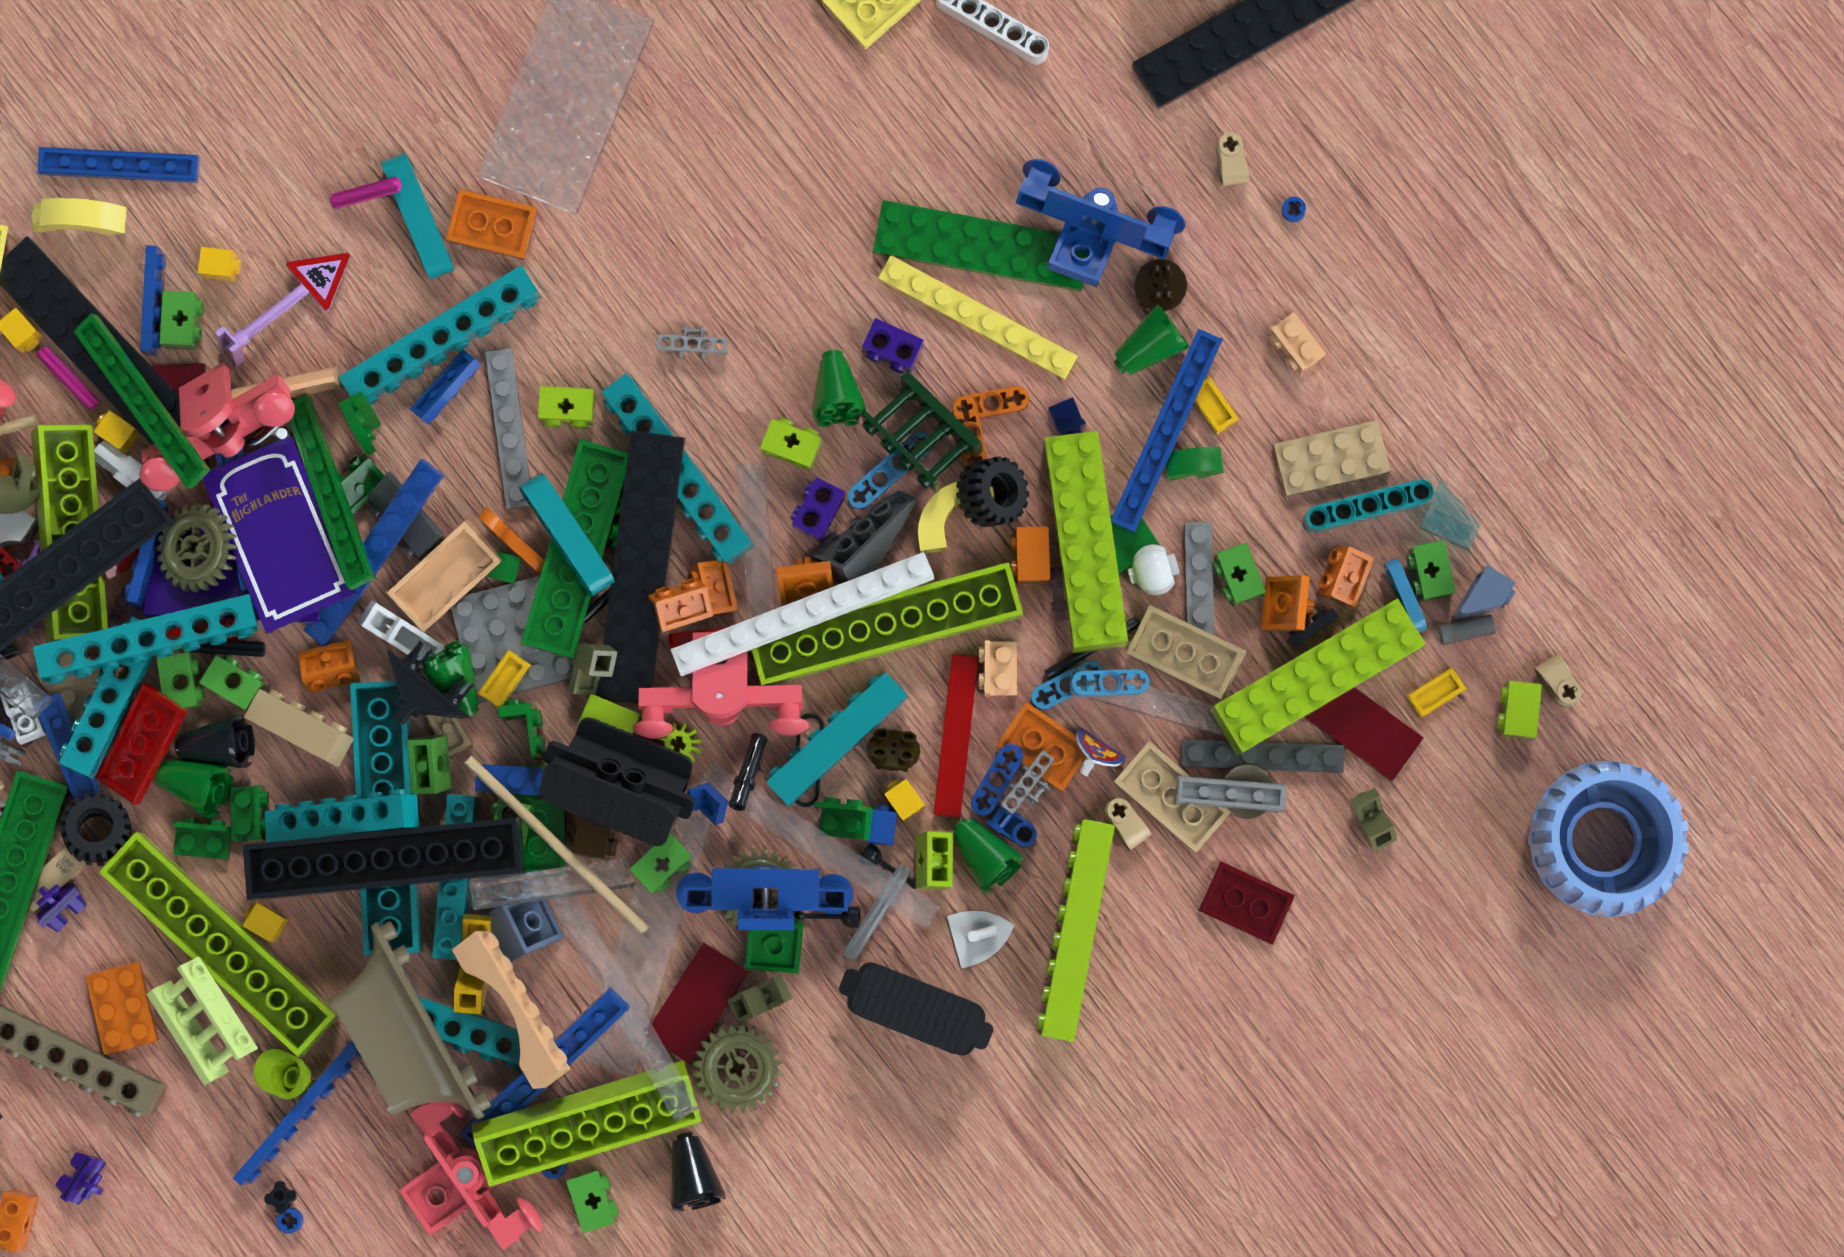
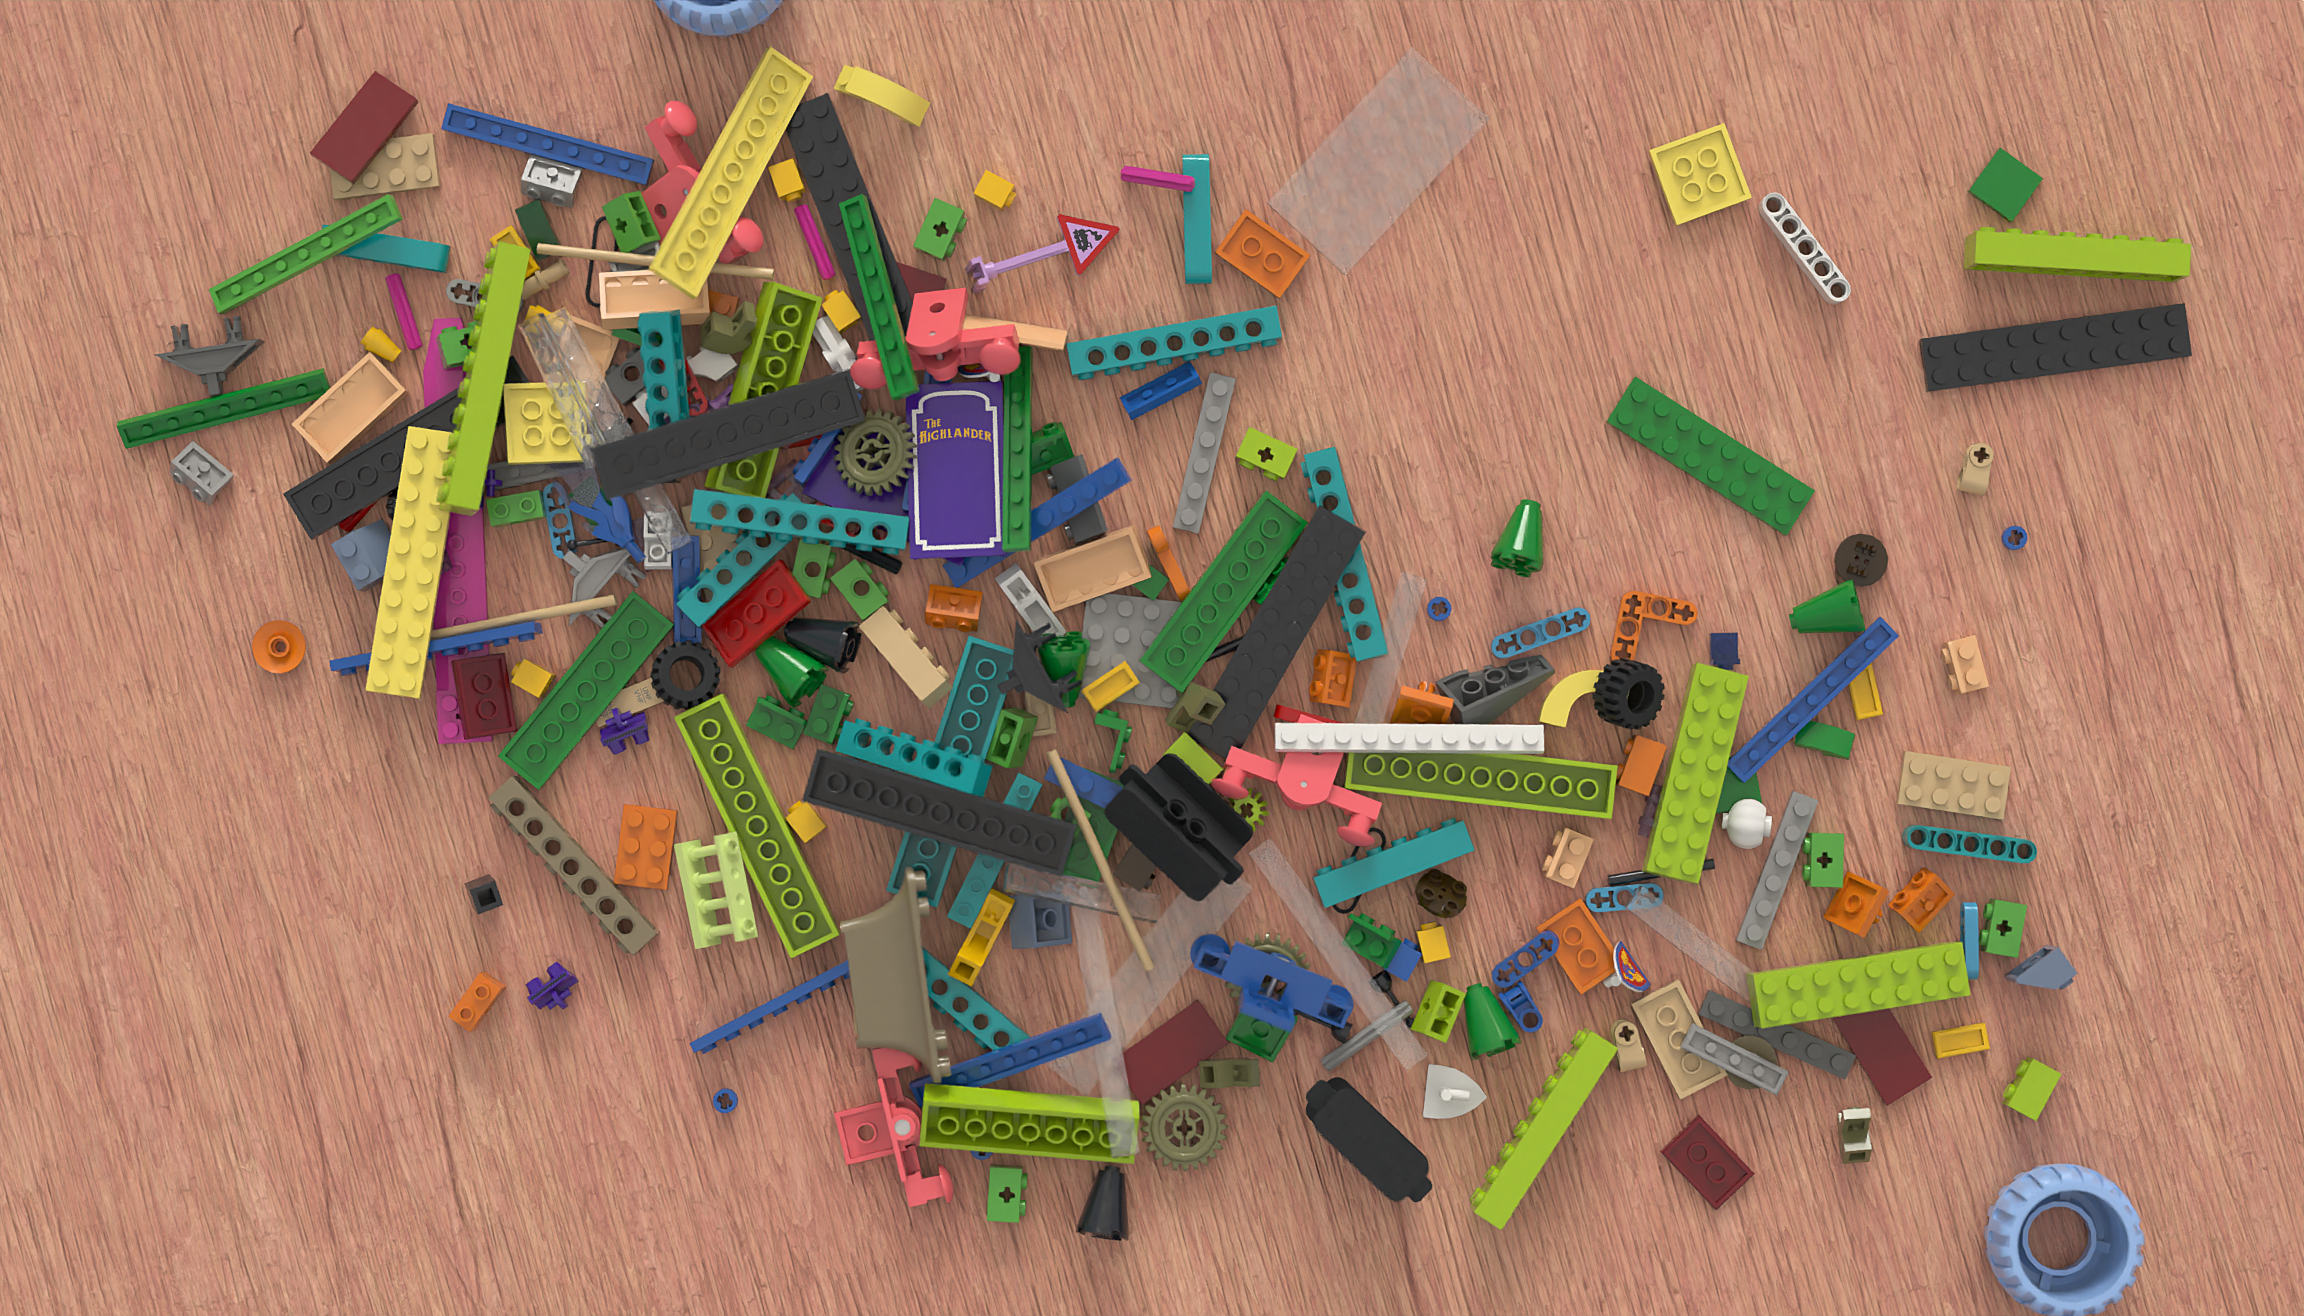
camera: 25 degrees right, 5 degrees up
(118, 165) = (937, 58): blue tile -> none
(152, 290) = (925, 191): blue plate -> none
(282, 1074) = (769, 966): lime piece -> none
(288, 1197) = (731, 1080): black plate -> none
(361, 420) = (1072, 391): green bracket -> none
(539, 1055) = (1012, 1049): light nougat arch -> none
(566, 534) = (1221, 577): teal beam -> none
(647, 866) = (1179, 929): bright green brick -> none
(681, 604) = (1301, 684): orange bracket -> none
(684, 341) = (1412, 440): light grey piece -> none
(709, 802) = (1255, 876): blue bracket -> none
(745, 780) = (1300, 862): black pin -> none
(781, 480) = (1436, 601): none -> blue bush
(800, 455) = (1445, 569): lime brick -> none
(824, 511) = (1464, 648): dark purple brick -> none
(896, 340) = (1594, 513): dark purple brick -> none
(929, 407) = (1602, 591): dark green fence -> none
(956, 736) = (1503, 903): red tile -> none
(977, 318) = (1679, 522): light yellow plate -> none
(1035, 778) = (1561, 973): light grey piece -> none
(1092, 224) = (1822, 480): blue piece -> none
(1128, 675) = (1649, 901): dark azure beam -> none
(1186, 652) = (1746, 913): tan plate -> none
(1320, 621) = (1881, 933): black plate -> none
(1449, 519) = (2039, 885): clear light blue wing -> none
(1467, 630) = (2021, 989): light grey piece -> none
(1556, 675) = (2078, 1070): tan piece -> none

